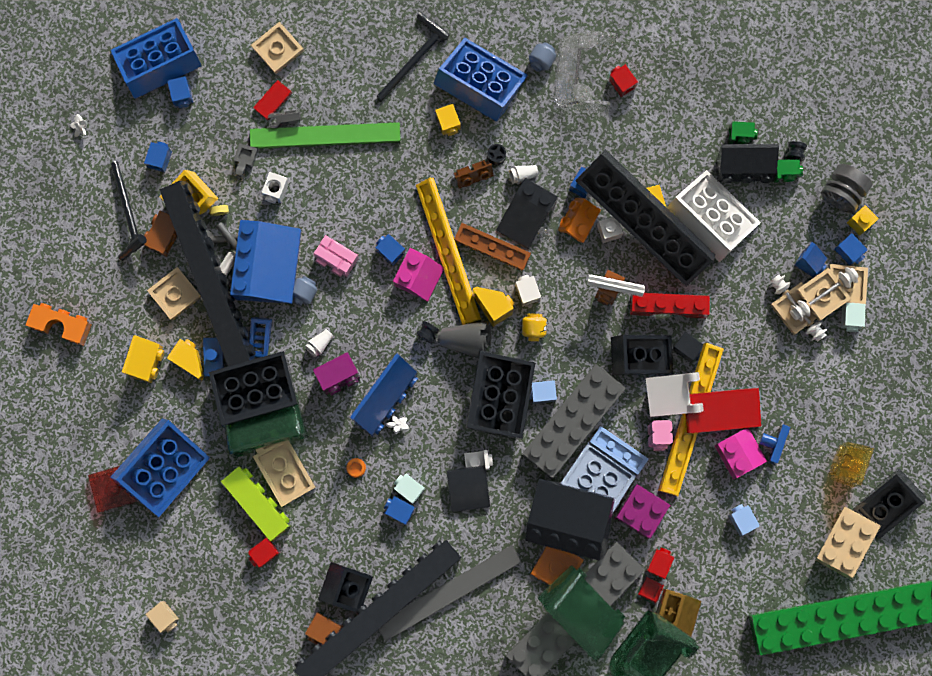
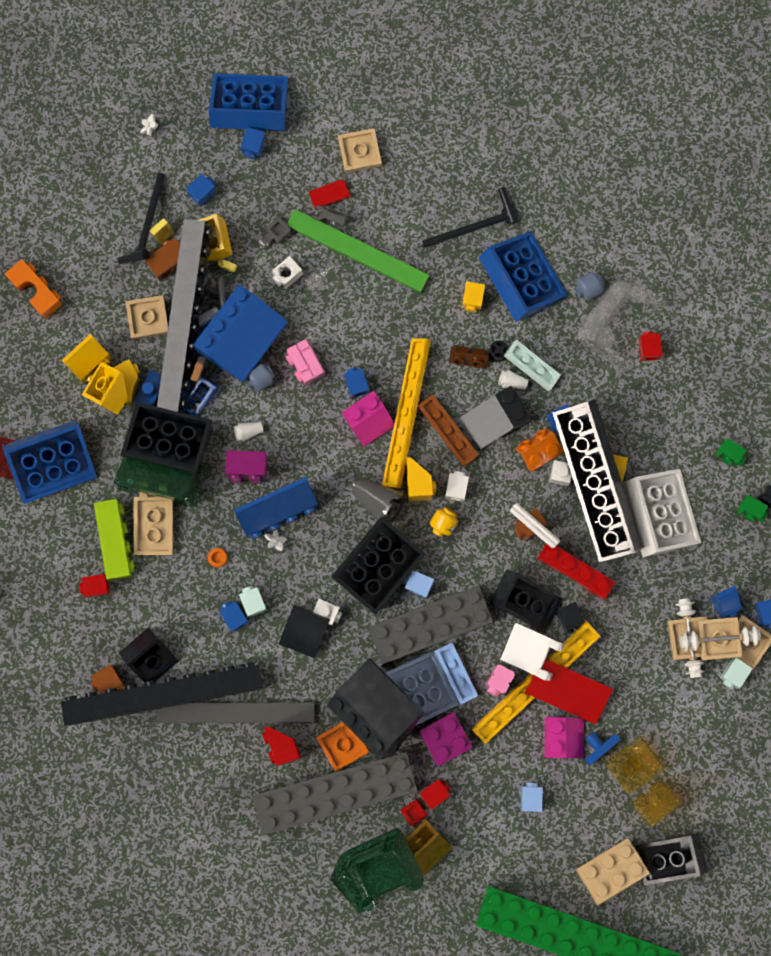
camera: 30 degrees right, 0 degrees up
(144, 212) = (162, 231): none -> light yellow plate
(175, 374) = (107, 388): none -> yellow slope
(246, 313) = (198, 368): none -> medium nougat tile
(303, 182) = (314, 279): none -> clear plant
(427, 332) = (347, 474): black wheel -> none
(508, 598) = (283, 747): none -> red slope
(532, 151) = (532, 365): none -> light aqua plate
(582, 612) = (339, 797): clear green windscreen -> none
(747, 163) = (718, 483): black slope -> none
(813, 442) = (634, 765): none -> clear yellow slope

